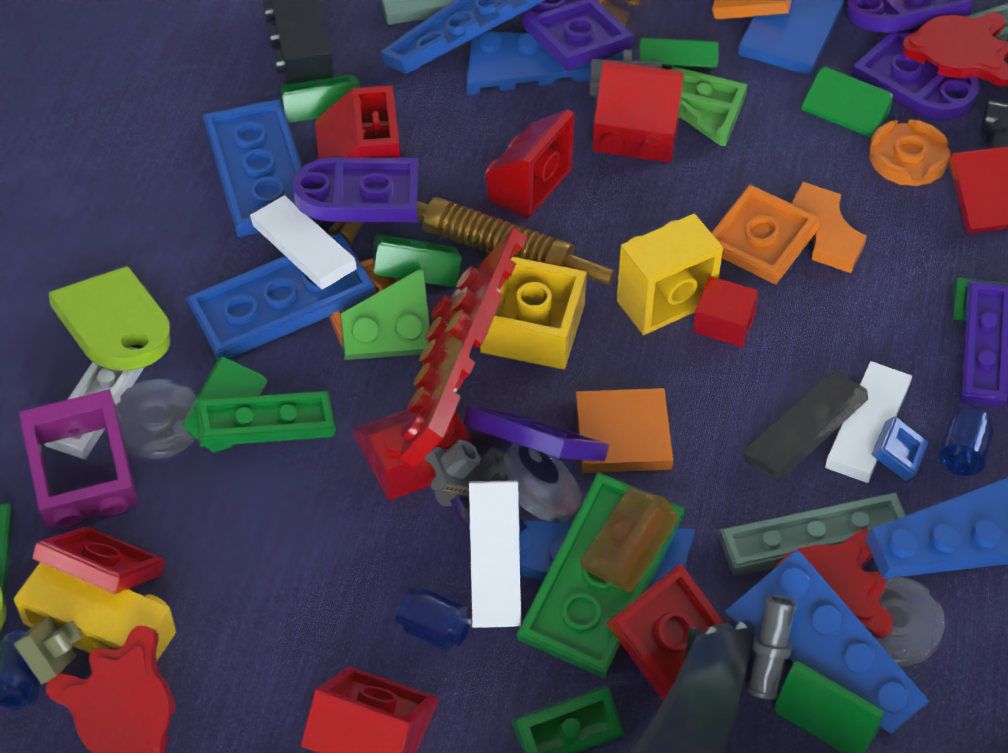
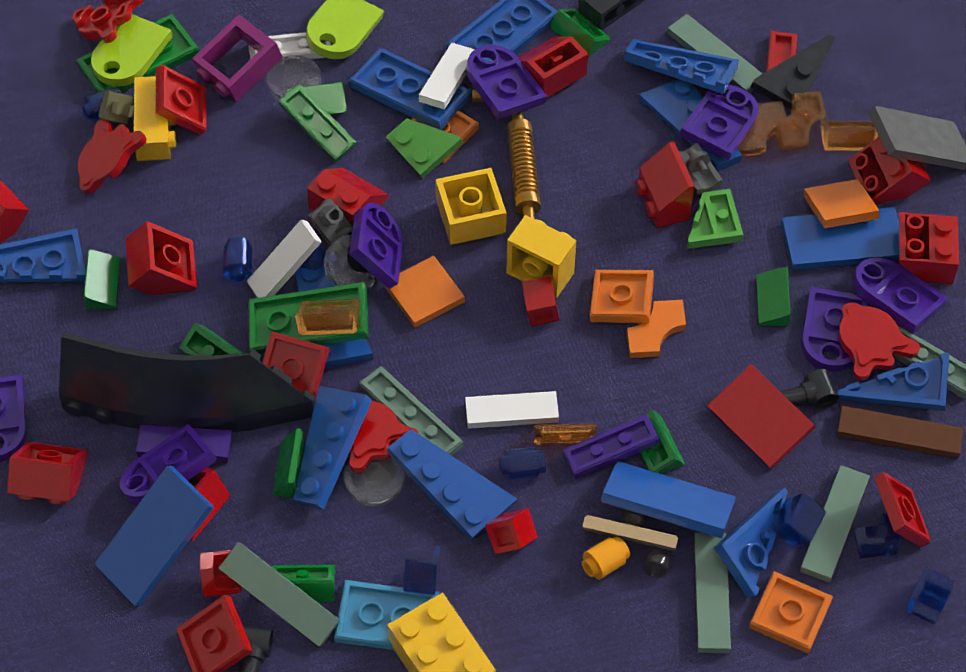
camera: 60 degrees right, 5 degrees up
(401, 257) = (478, 135): green slope -> none
(456, 327) = (399, 172): red wing -> none
(532, 165) = (587, 157): red slope -> none
(679, 52) = (741, 188): green slope -> none
(771, 646) = (305, 413): dark grey pin -> none
(805, 425) = (482, 376): clear smoke tile -> none
(900, 448) = (497, 431): blue tile -> none
(909, 152) = (757, 345): orange tile -> none
(934, 380) = (563, 433): none -> clear orange slope

